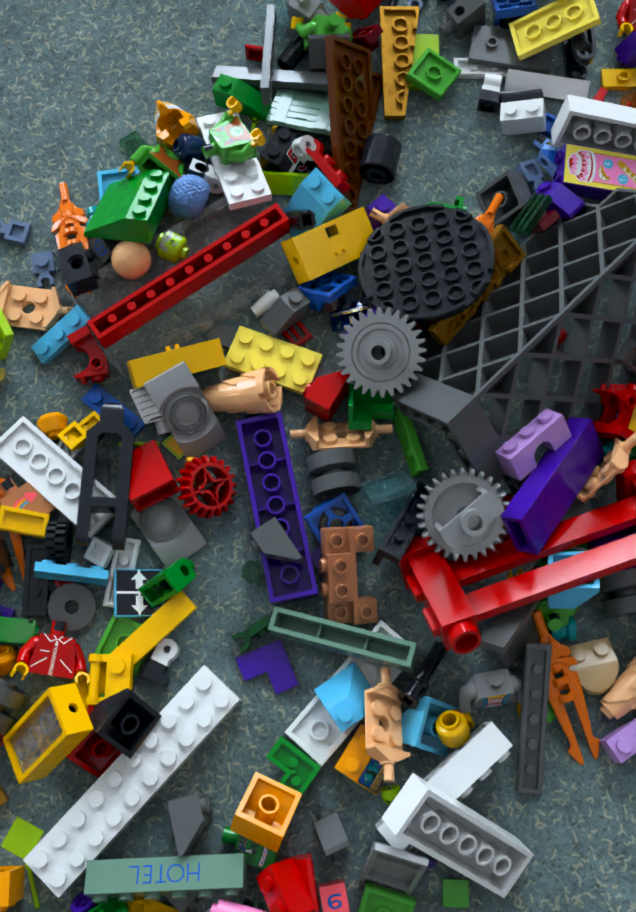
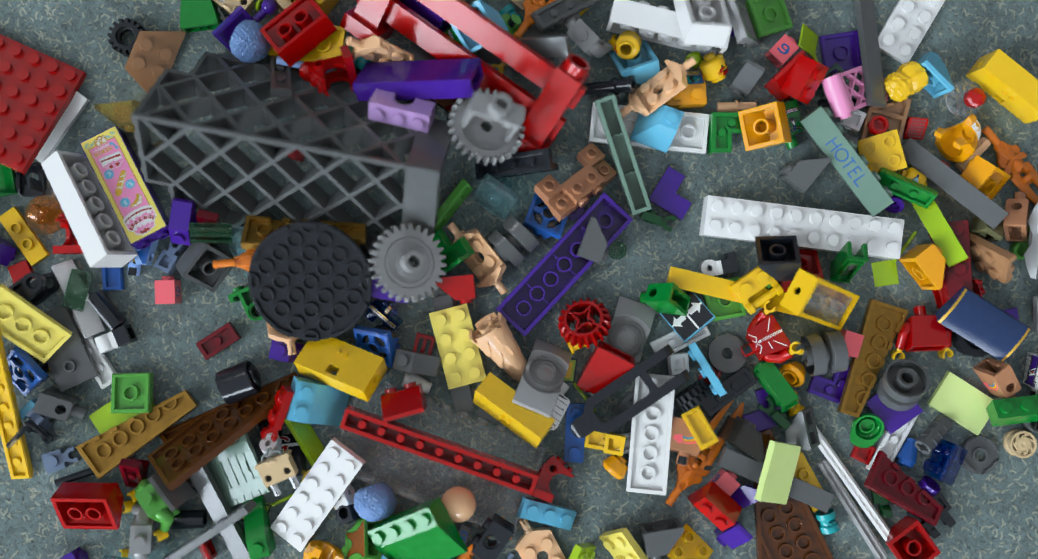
camera: 130 degrees left, 15 degrees up
(56, 791) = (845, 265): none -> green window
(172, 247) = (425, 482): lime head -> none
(188, 147) = (331, 536): dark blue head -> none
(231, 138) = (306, 504): torso -> none
(257, 272) = (403, 401): none -> red slope
(280, 135) = (277, 468): none -> tan piece
(301, 219) = (338, 401): black axle -> none
(309, 802) = (735, 106): none -> light nougat axle
(367, 807) = (714, 67): none -> yellow head
(428, 169) = (218, 341): none -> dark red plate
(503, 155) = (167, 290): none -> coral brick
(523, 117) = (123, 297): white brick -> none
(553, 86) = (77, 290): none -> clear green tile
(602, 59) = (19, 270): none -> red tile

